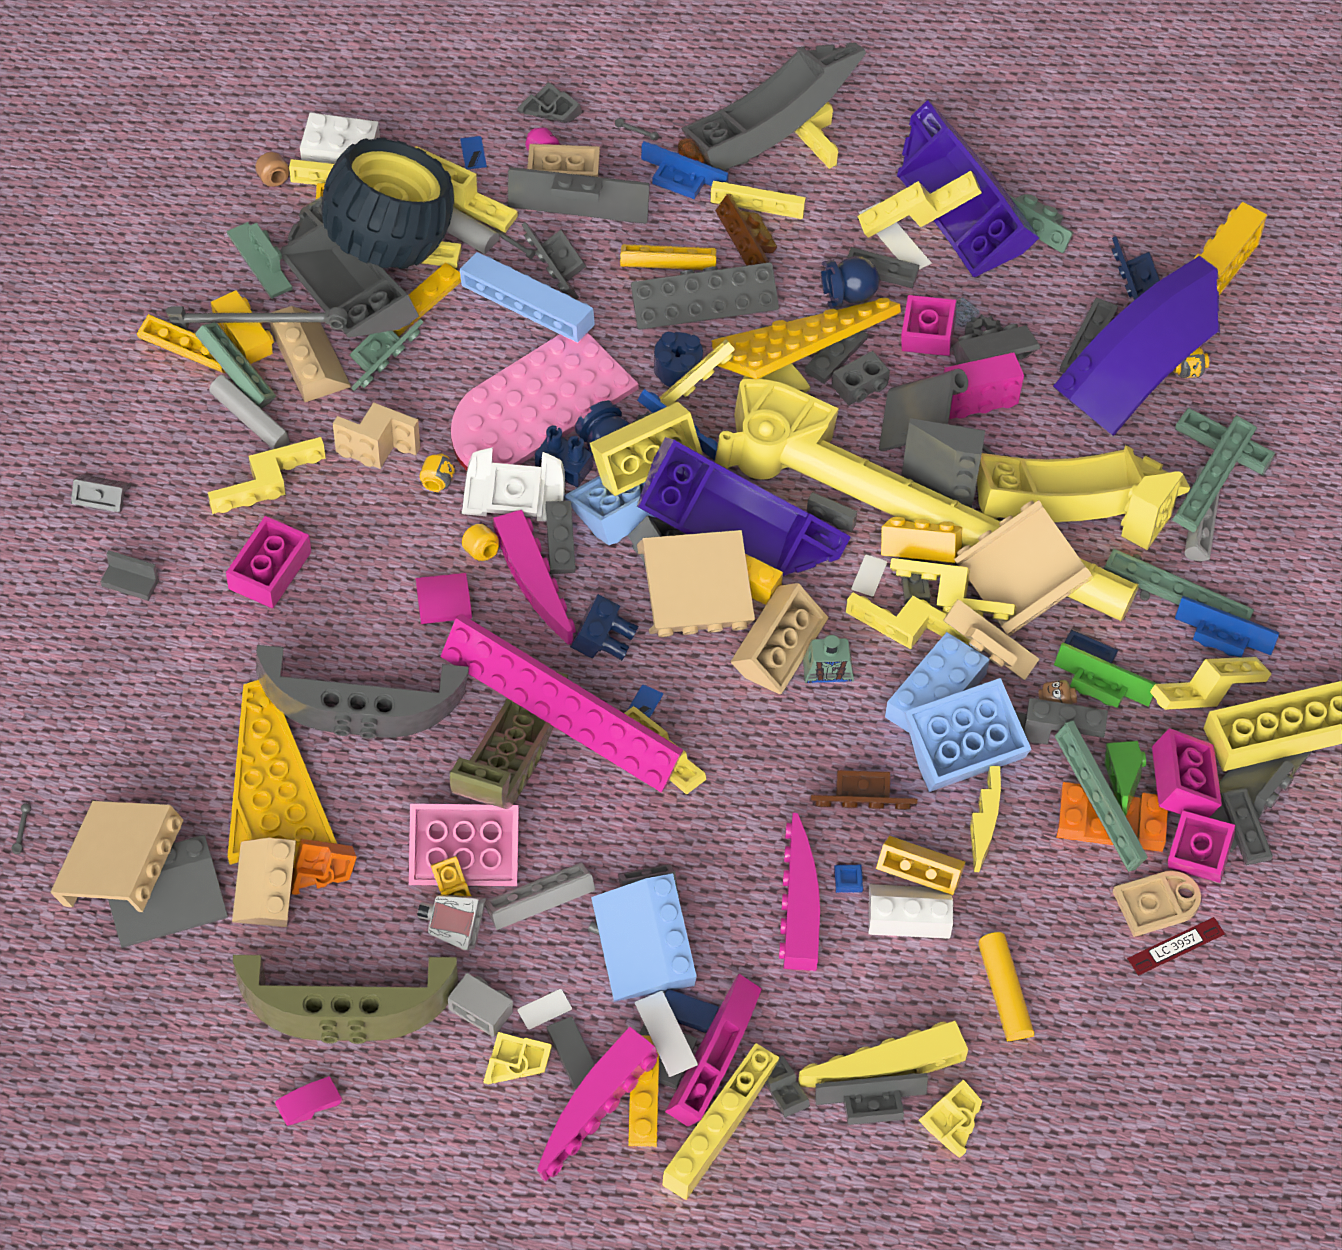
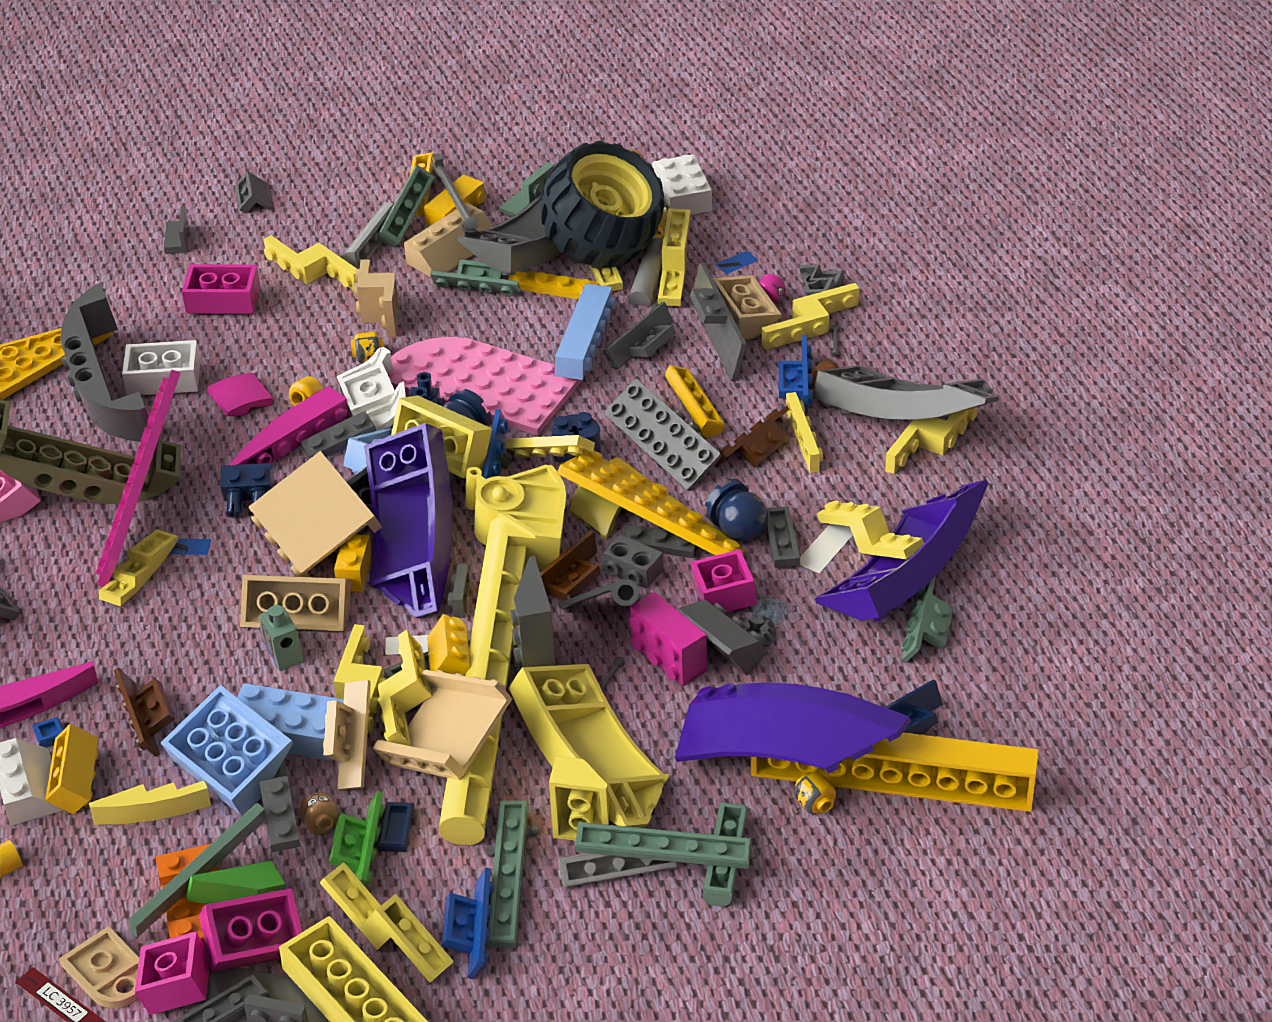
camera: 70 degrees right, 15 degrees down
(372, 646) = (150, 362): none -> white brick
(602, 129) = (810, 316): none -> light yellow bracket
(855, 427) = (571, 569): none -> reddish brown bracket

